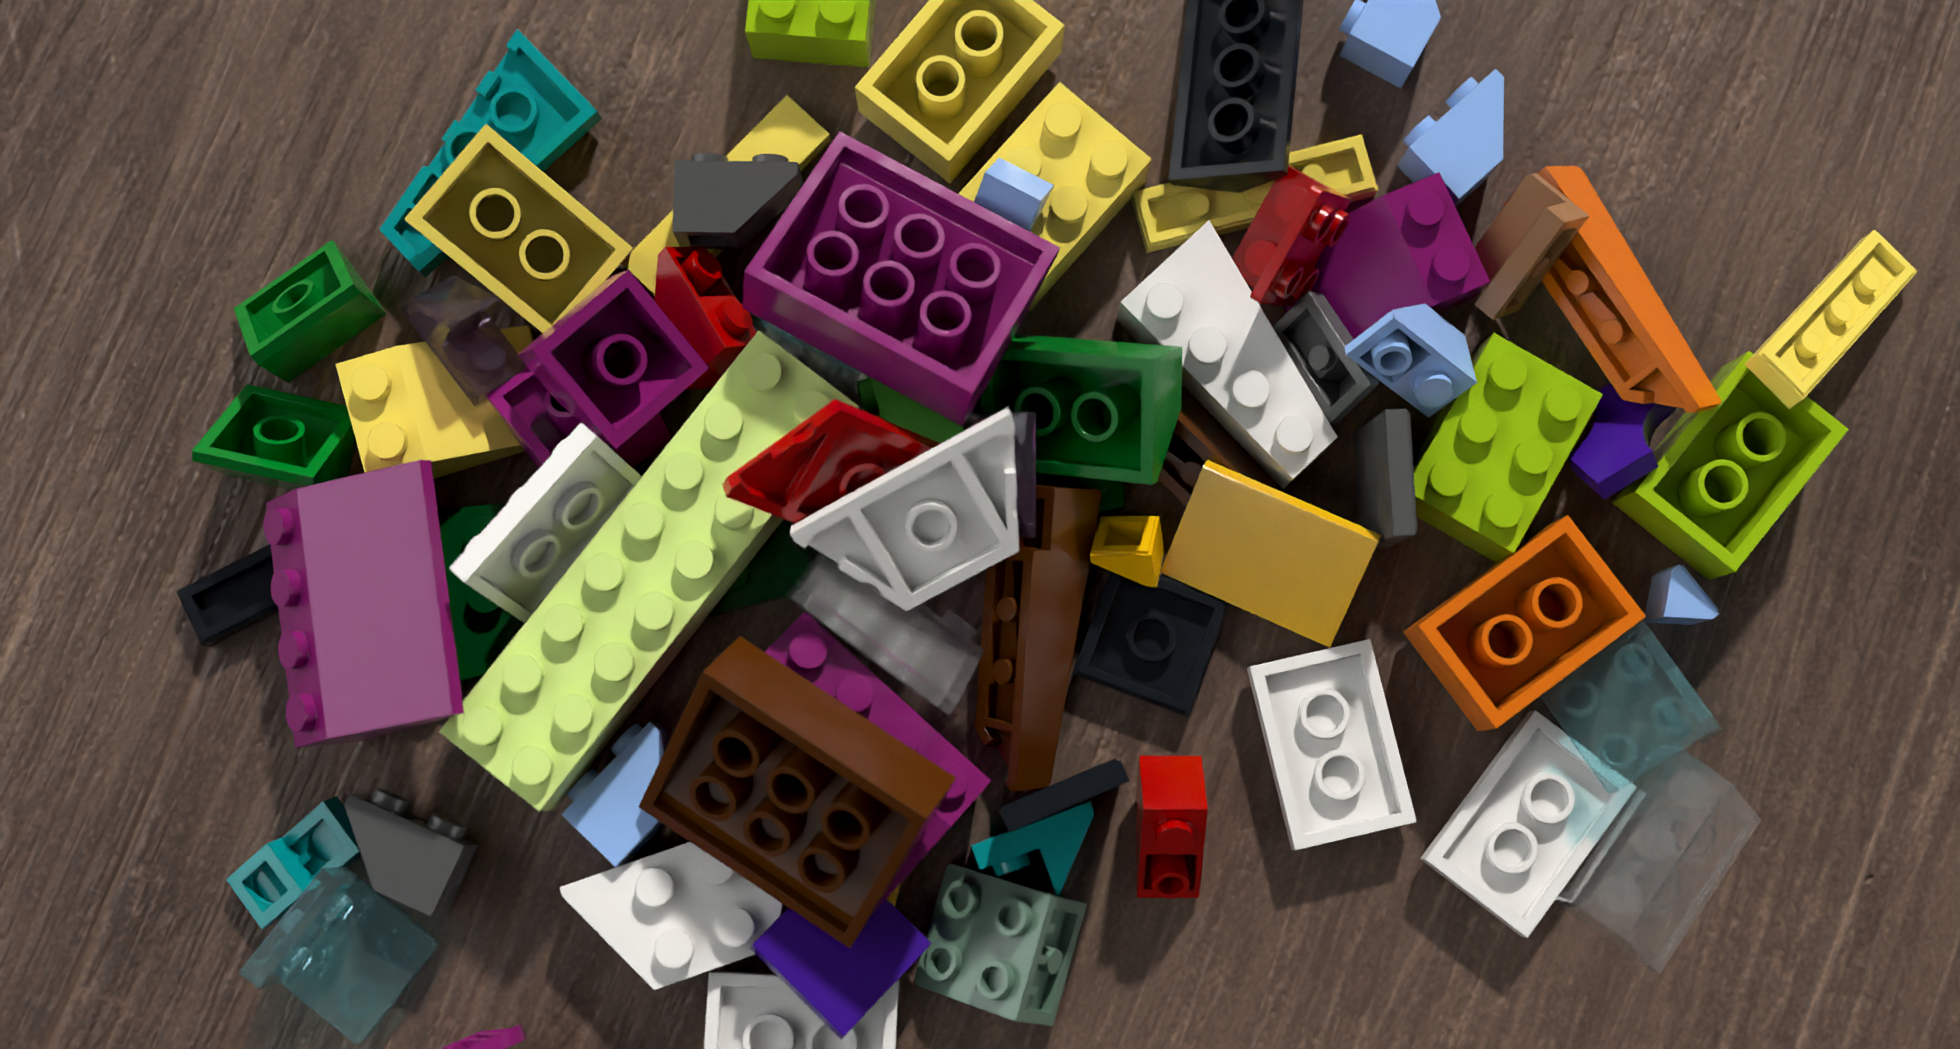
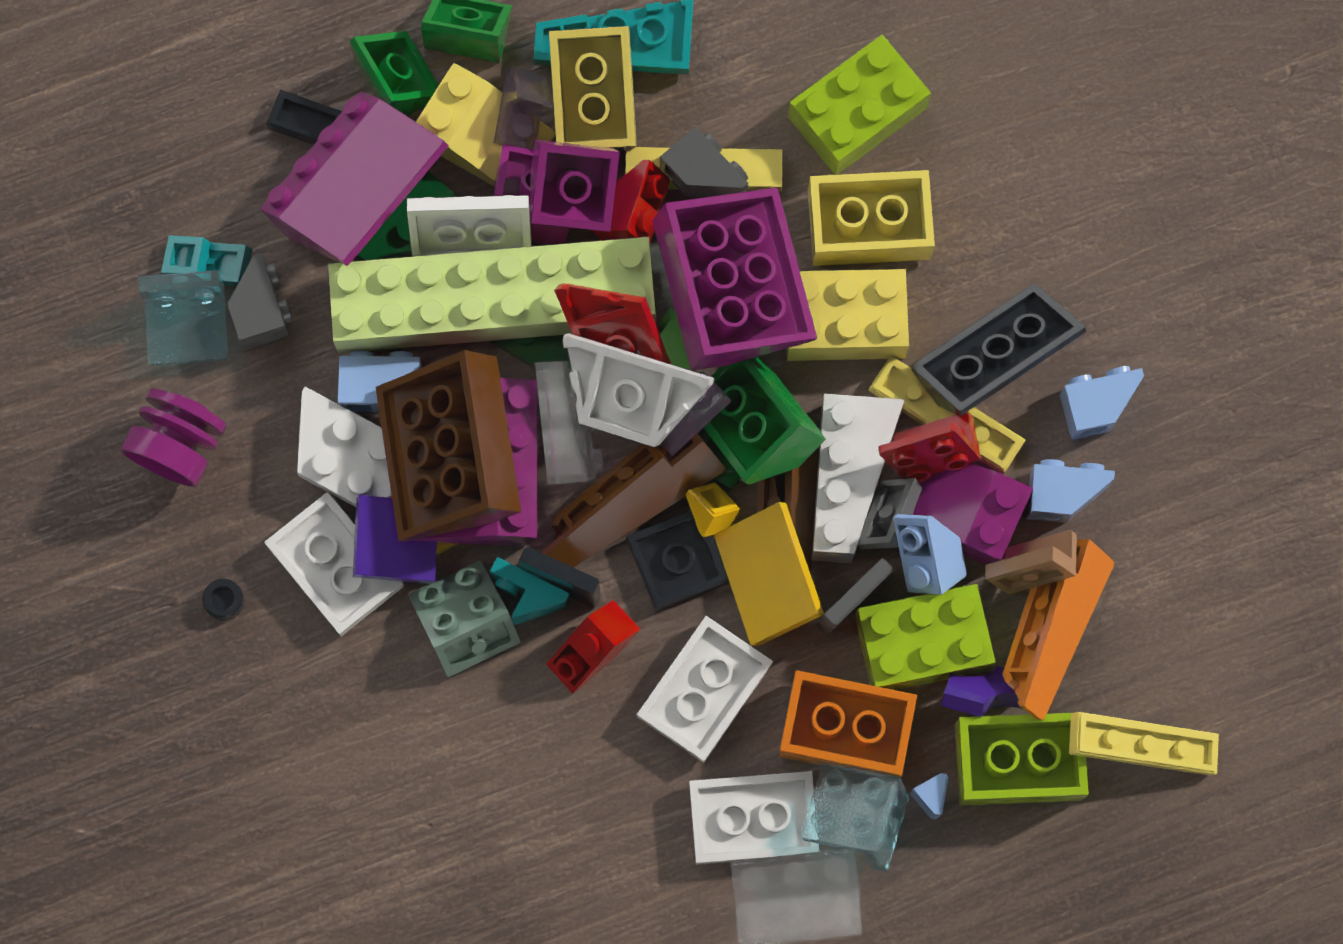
camera: 45 degrees right, 5 degrees down
(1013, 193) = (825, 295): light blue slope -> none

